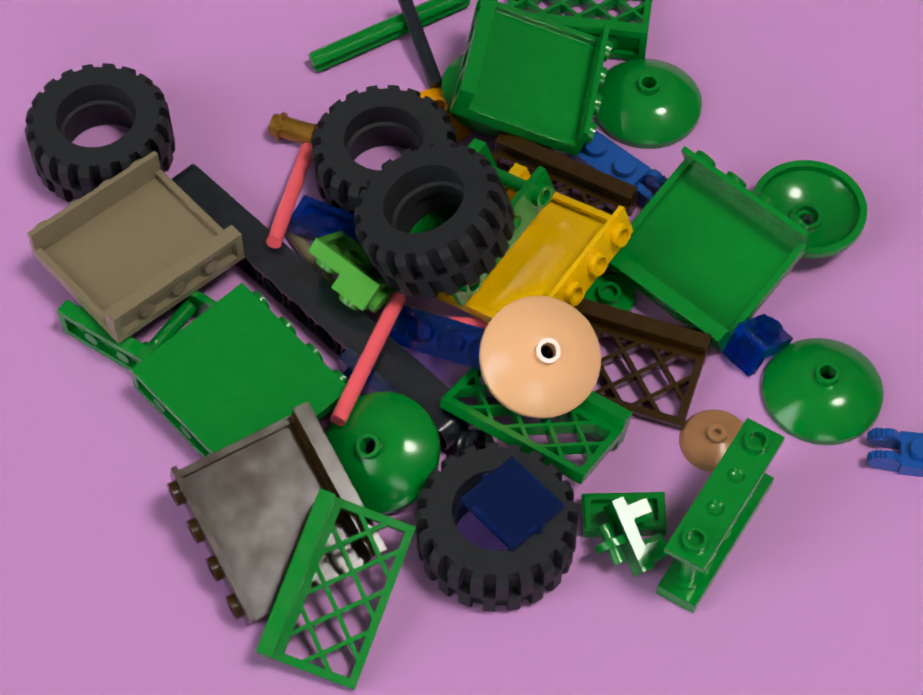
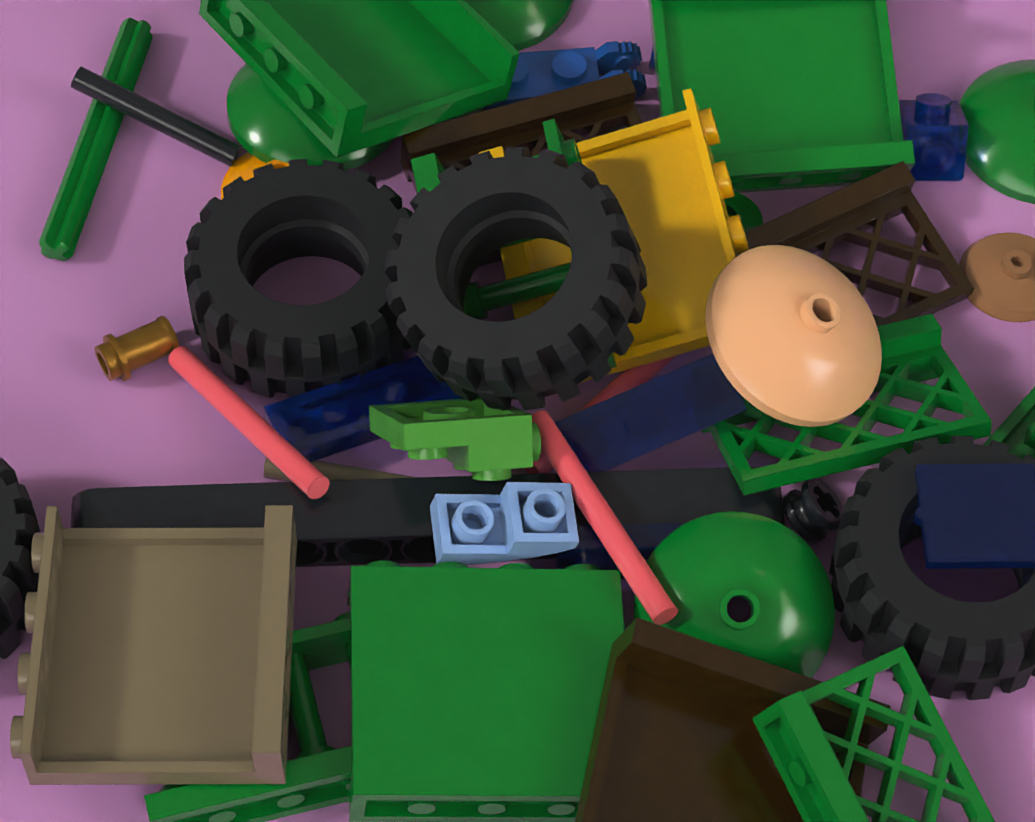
camera: 50 degrees left, 0 degrees up
(325, 325) = (511, 526): none -> light blue slope

